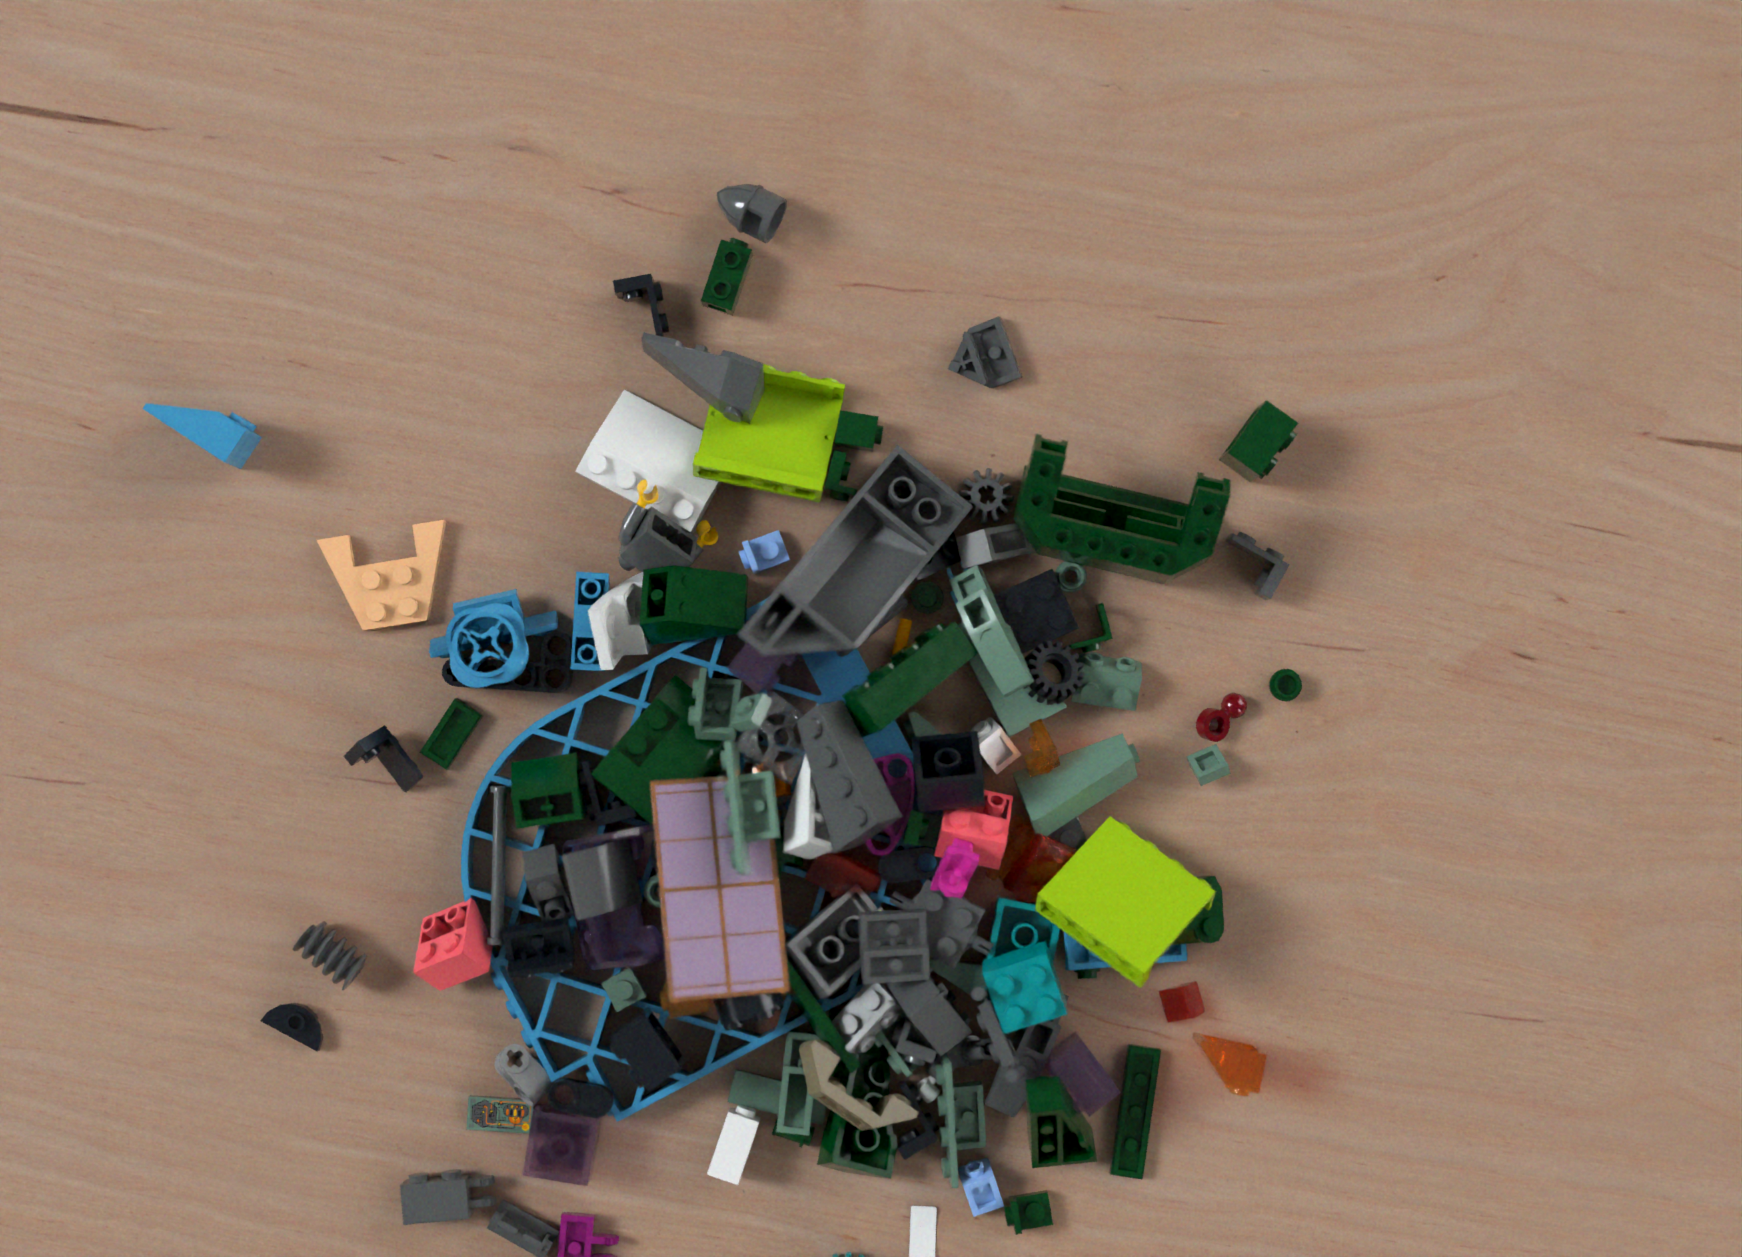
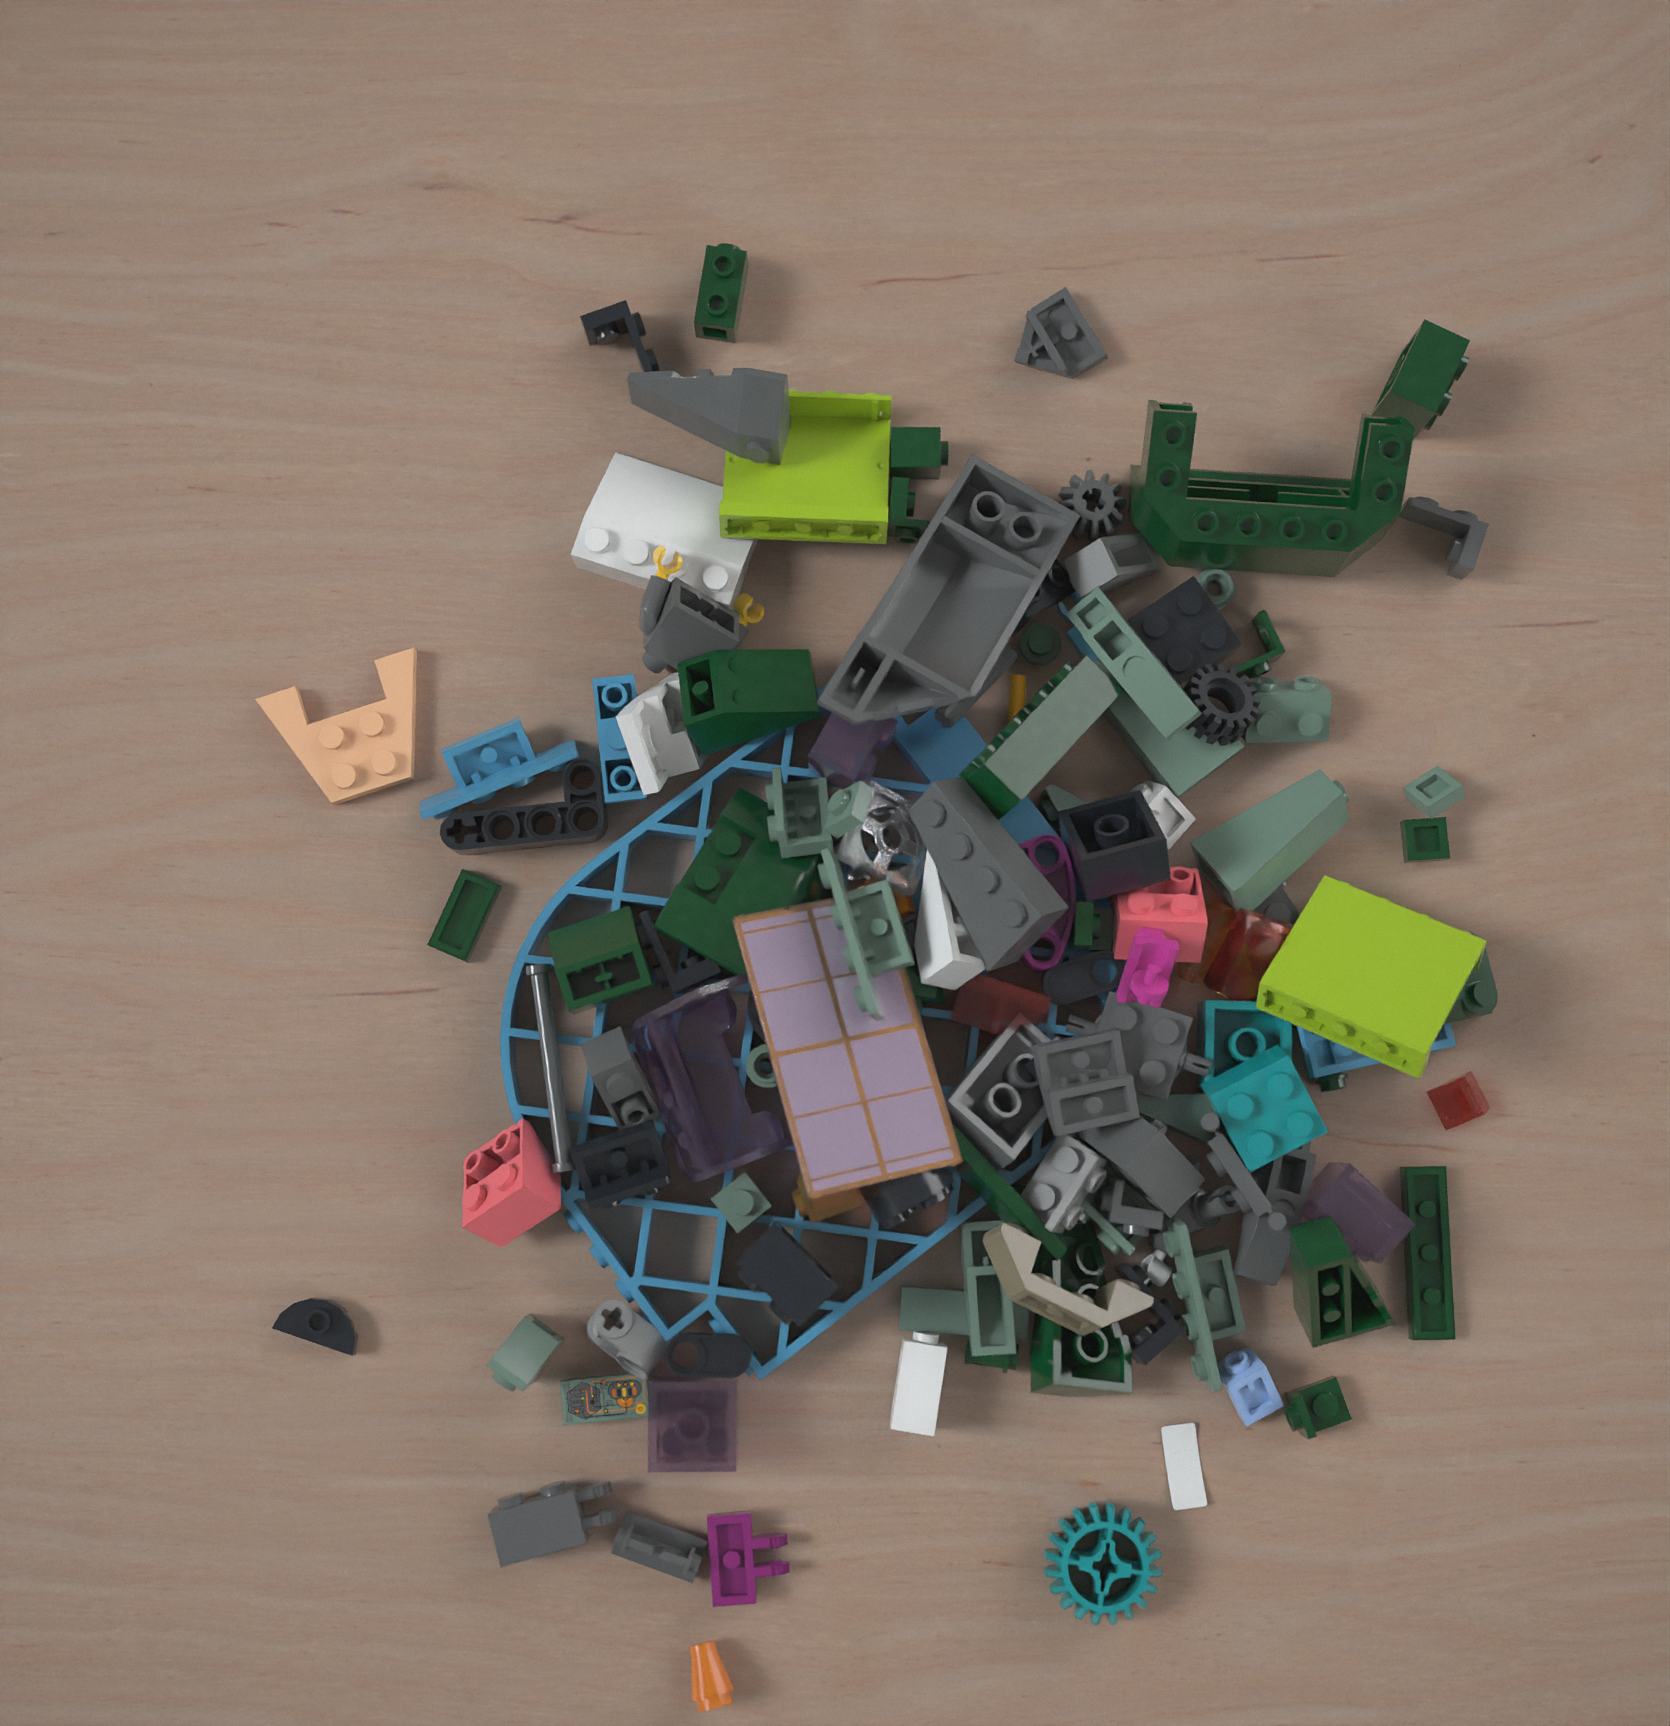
camera: 10 degrees left, 5 degrees down
(224, 436) = (98, 577): dark azure slope -> none
(330, 953) = (350, 1224): dark grey piece -> none
(390, 753) = (383, 946): black bracket -> none
(445, 1073) = (524, 1354): none -> sand green slope
(514, 662) = (458, 769): dark azure piece -> none
(602, 879) = (690, 1059): dark grey slope -> none
(752, 210) = (739, 206): dark grey helmet -> none
(764, 552) = (825, 622): light blue bracket -> none
(1044, 754) = (1225, 803): clear orange bracket -> none
(1194, 800) = (1425, 840): none -> dark green plate
(1215, 723) = (1431, 738): dark red plate -> none
(1233, 1062) = (1550, 1167): clear orange slope -> none
(1285, 685) = (1509, 678): dark green plate -> none

